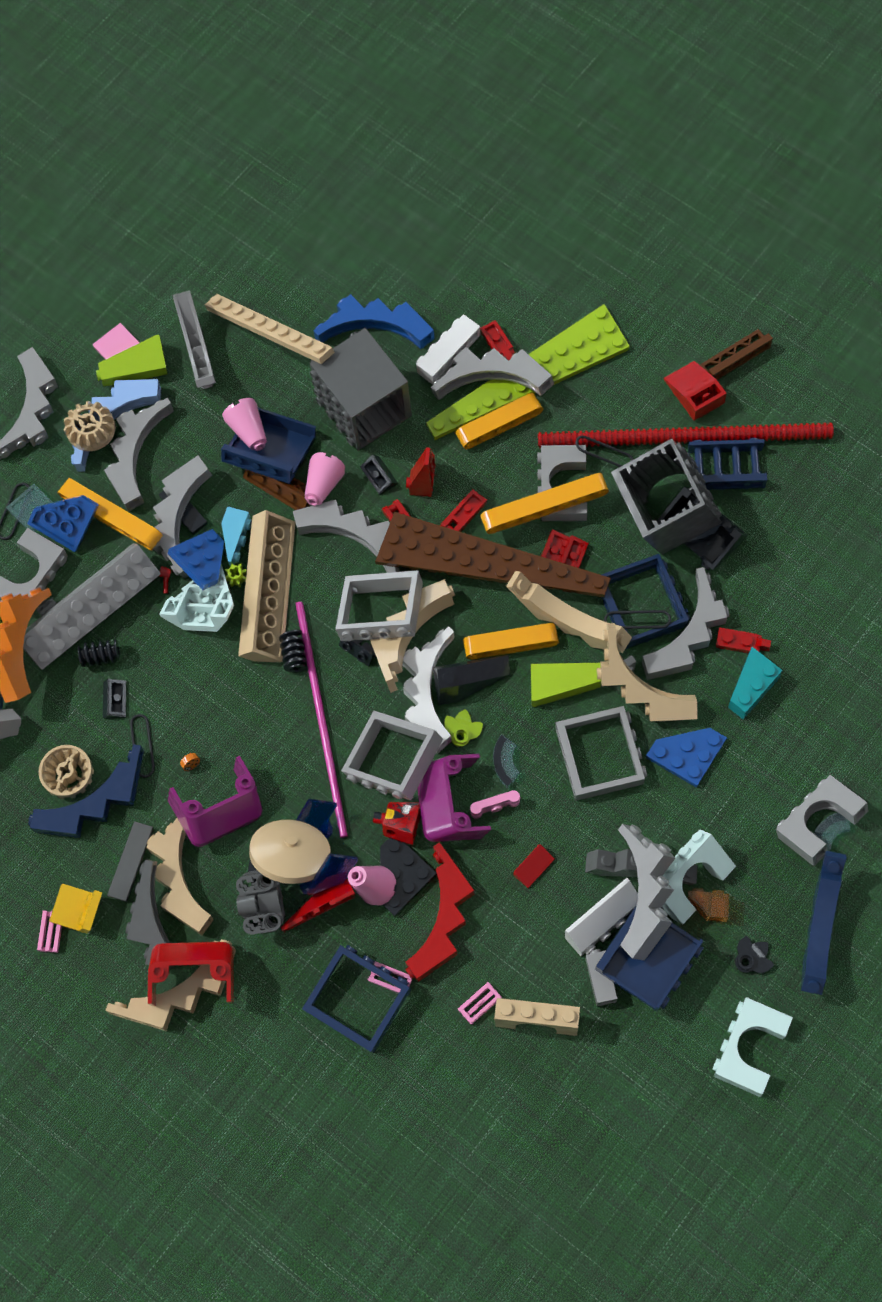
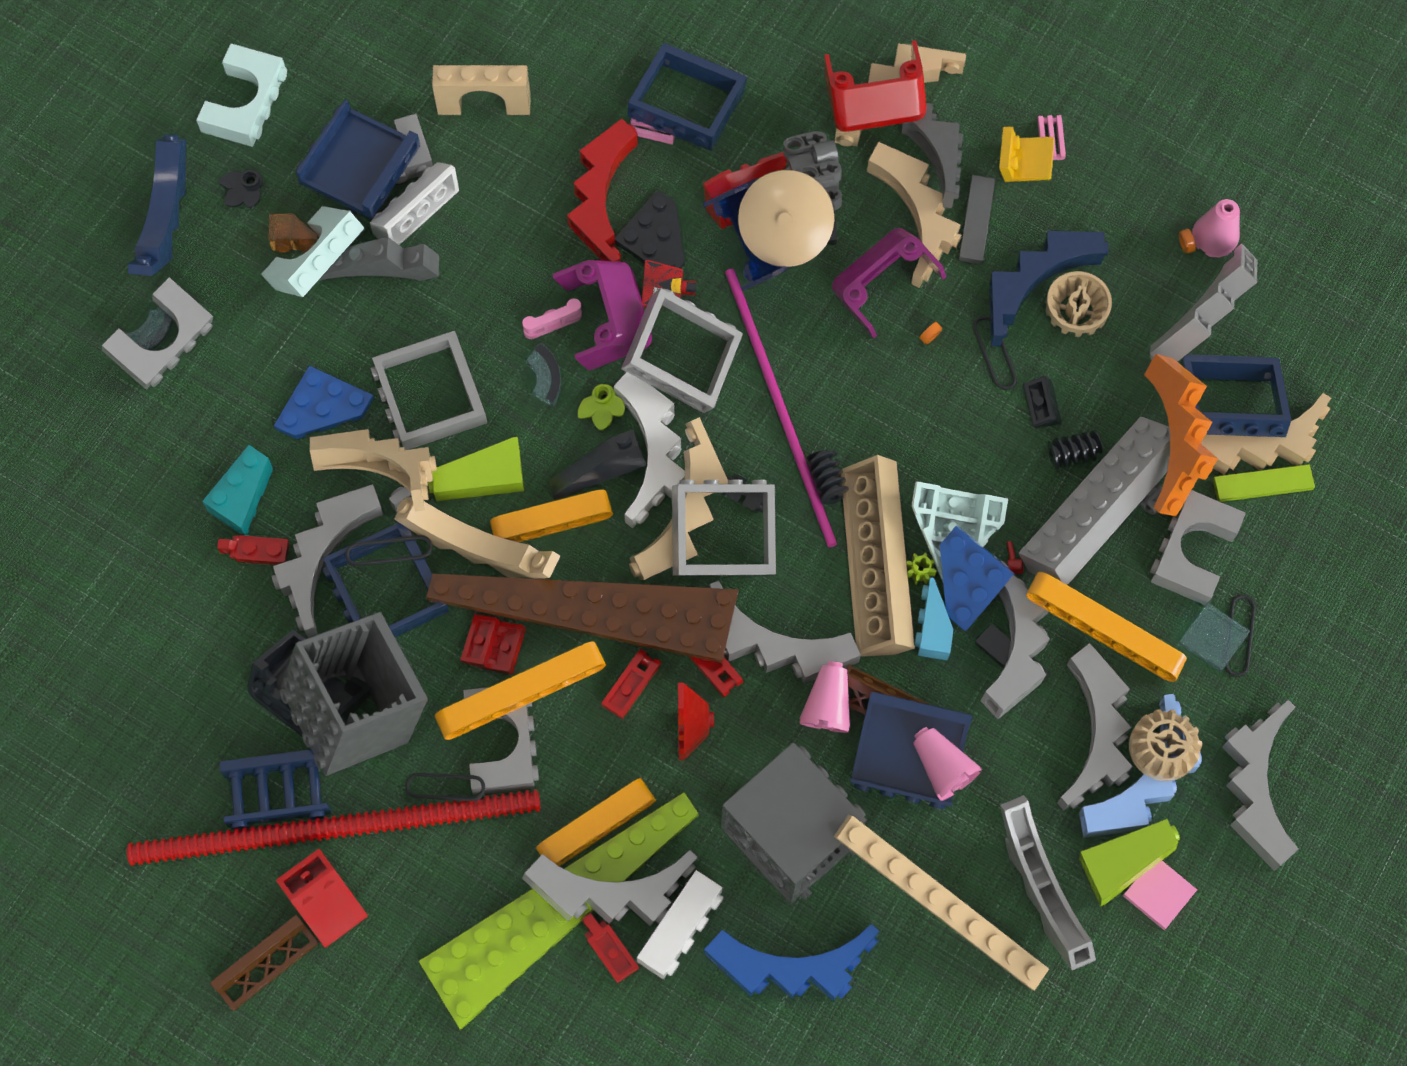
camera: 165 degrees right, 0 degrees up
(65, 520) = (1161, 609): blue plate -> none
(373, 883) = (684, 212): bright pink cone -> none
(378, 474) = (753, 733): black slope -> none
(461, 1009) = (549, 124): bright pink tile -> none
(533, 866) = (501, 259): red slope -> none
(653, 890) = (354, 208): light grey arch -> none

